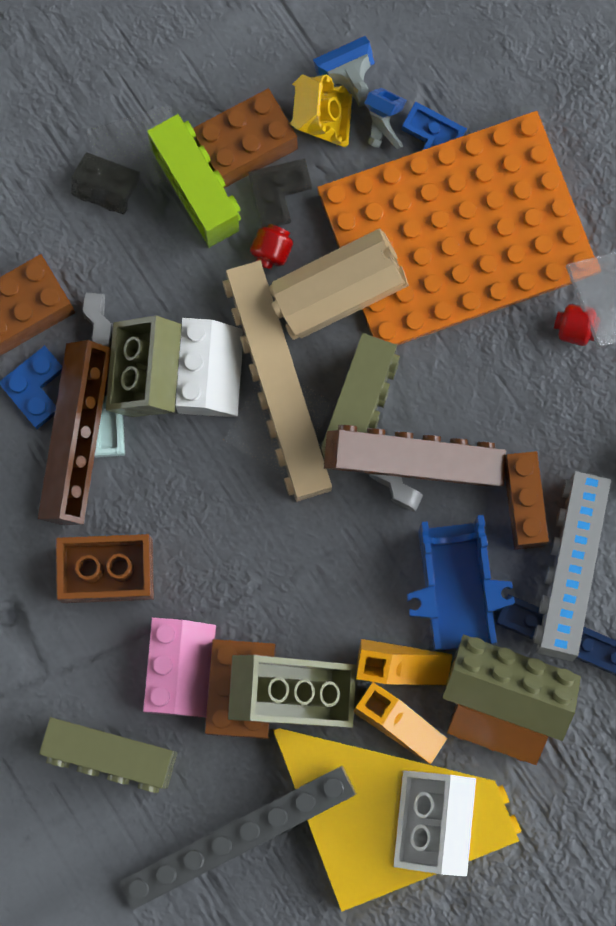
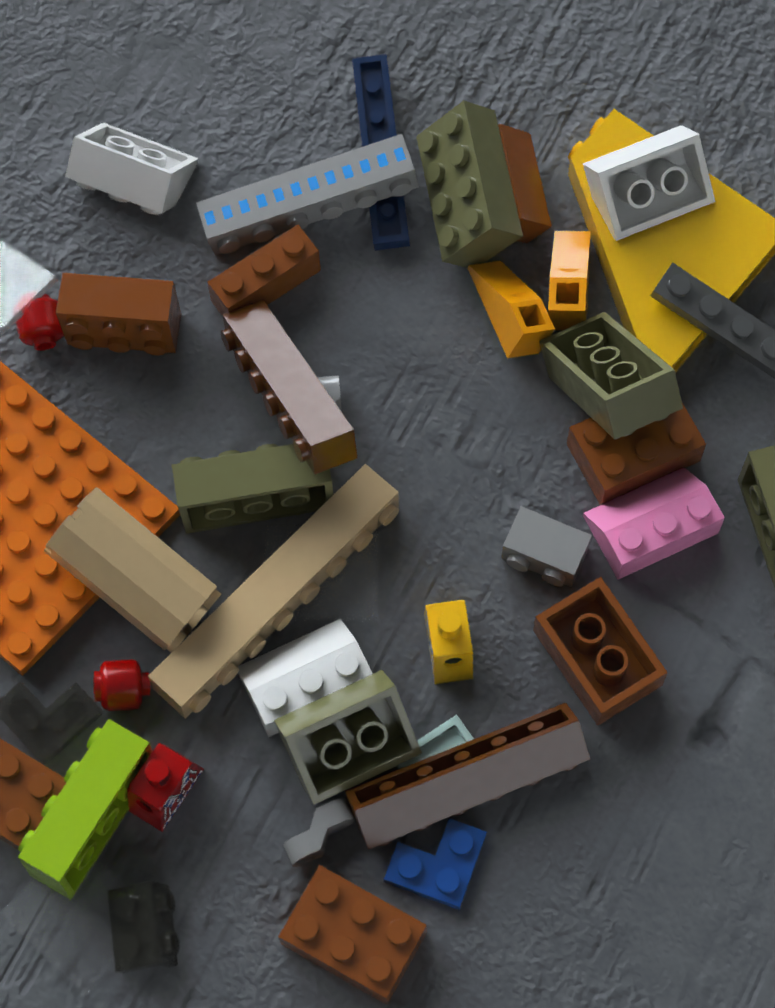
camera: 120 degrees left, 10 degrees down
(177, 475) = (448, 639): none -> yellow torso
(186, 238) = (162, 786): none -> red torso
(202, 579) = (545, 547): none -> light grey brick
(458, 584) = (388, 295): blue piece -> none
(546, 377) = (119, 313): none -> dark orange brick

